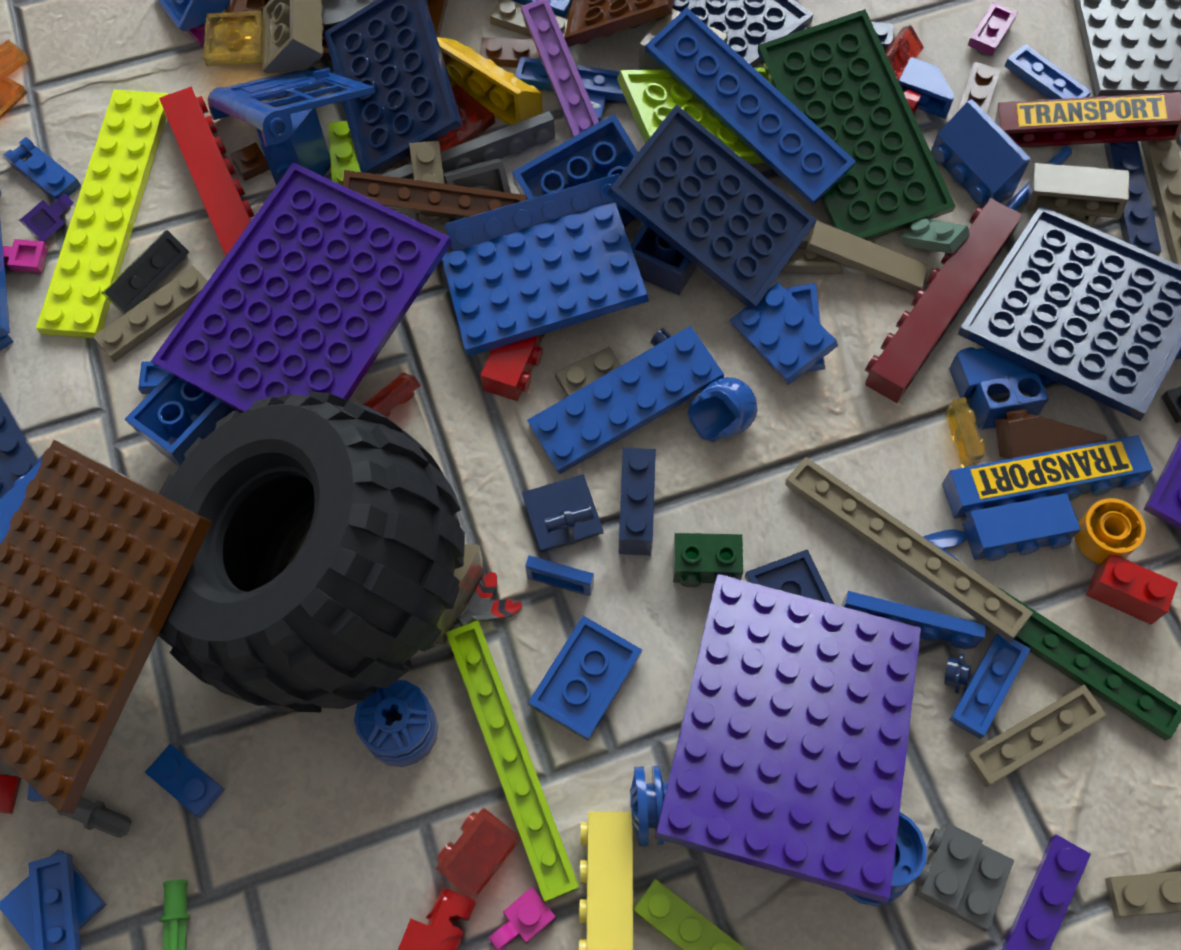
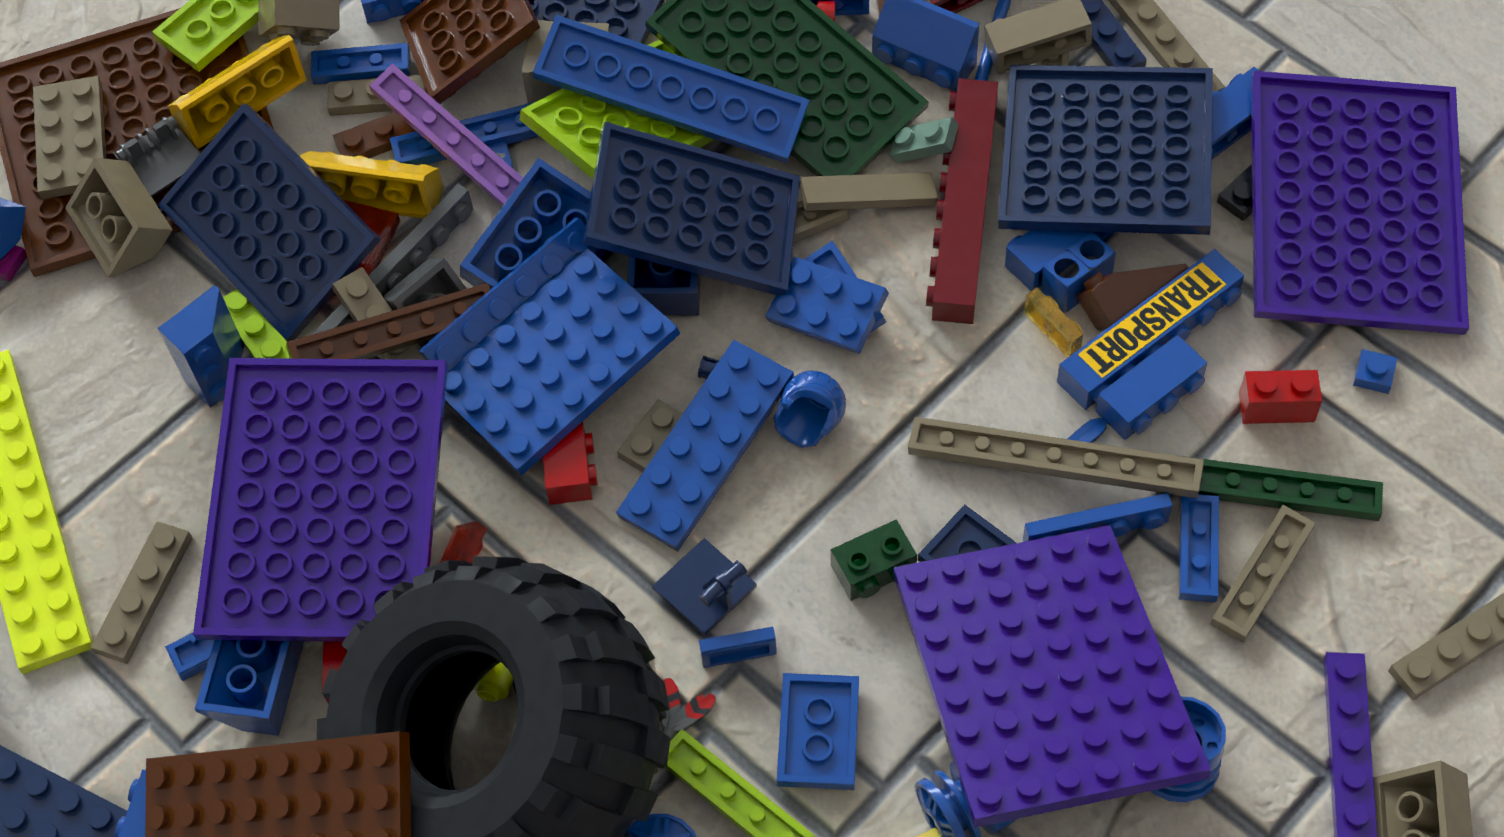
camera: 25 degrees left, 5 degrees down
(145, 272) = (108, 552): black plate -> none
(208, 168) = (118, 415): red brick -> none
(233, 38) = (55, 255): clear yellow plate -> none
(245, 99) = (121, 308): blue door -> none
(250, 161) = (149, 382): reddish brown plate -> none
(637, 501) = (774, 538): dark blue brick -> none
(957, 673) = (1164, 551): dark blue plate -> none
(963, 876) = (1264, 731): dark grey plate -> none
(1121, 521) = (1233, 349): light orange piece -> none

